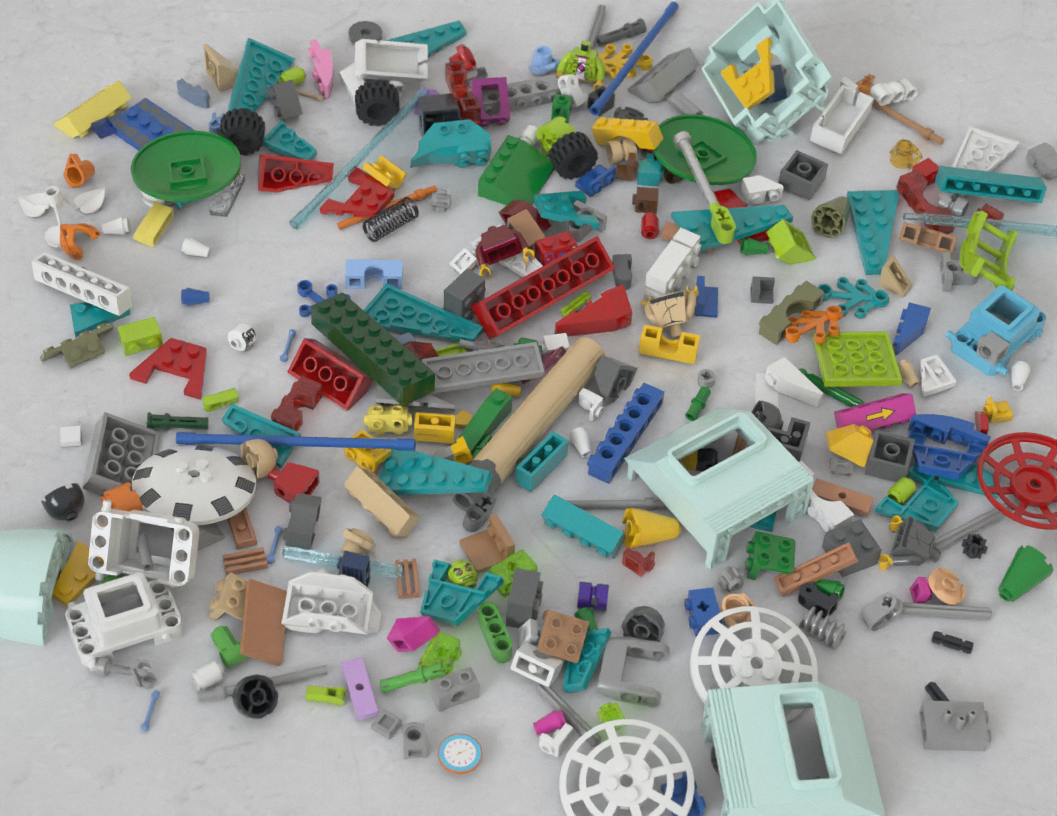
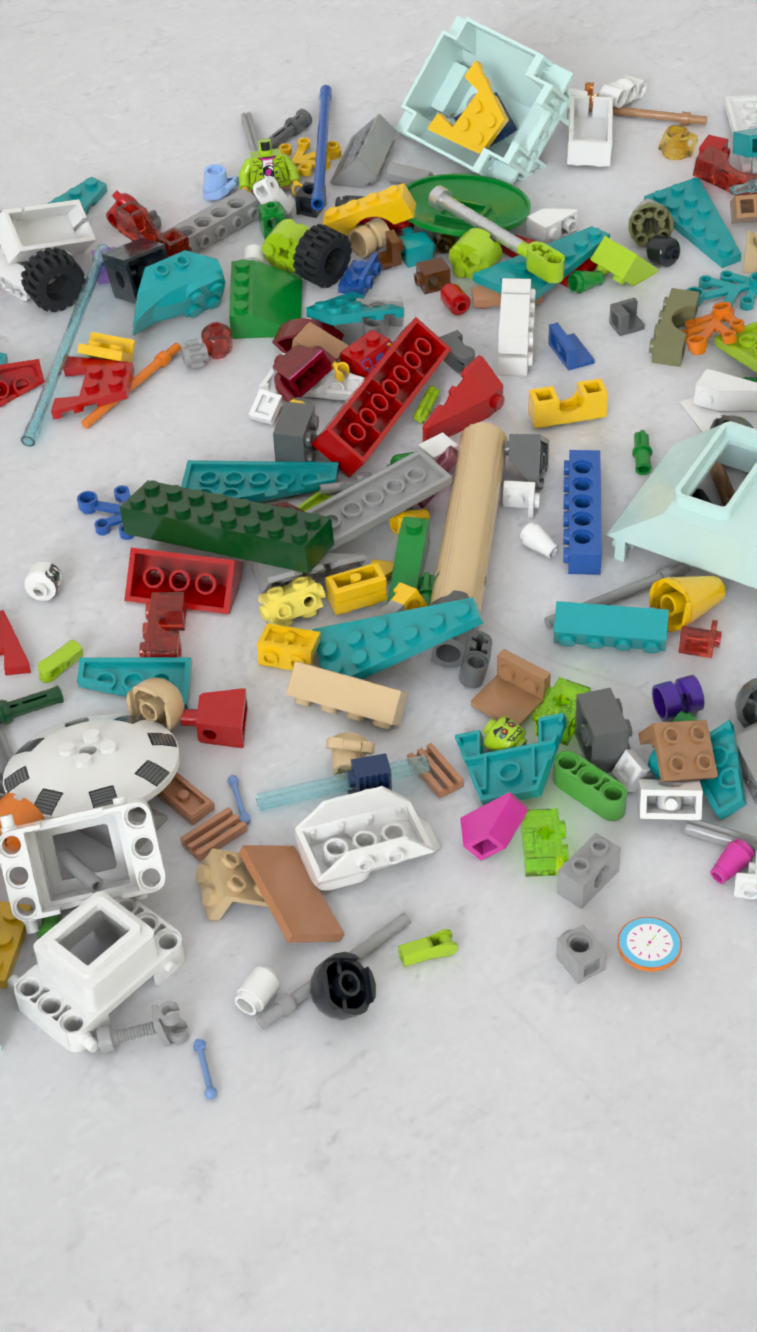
camera: 20 degrees left, 5 degrees down
(227, 646) = (267, 948): bright green piece -> none
(284, 357) = (109, 586): medium blue hinge -> none
(304, 514) = (262, 755): dark grey brick -> none
(359, 689) = (467, 922): lavender tile -> none
(361, 270) = (144, 459): light blue arch -> none
(372, 224) = (145, 414): black piece -> none
(386, 724) = (528, 951): light grey tile -> none
(399, 444) = (329, 618): blue piece -> none
(420, 675) = (529, 878): bright green pin -> none
(462, 195) = (217, 339): none -> clear red head
(500, 83) = (183, 215): magenta panel -> none
(541, 461) = (510, 576): teal brick -> none
(671, 310) = (545, 367): tan torso -> none
(683, 195) = (474, 253): none -> lime brick
(708, 374) = (630, 424): light grey bush -> none
(803, 174) = (589, 193): dark grey brick -> none
(826, 244) = (663, 250): none -> black head

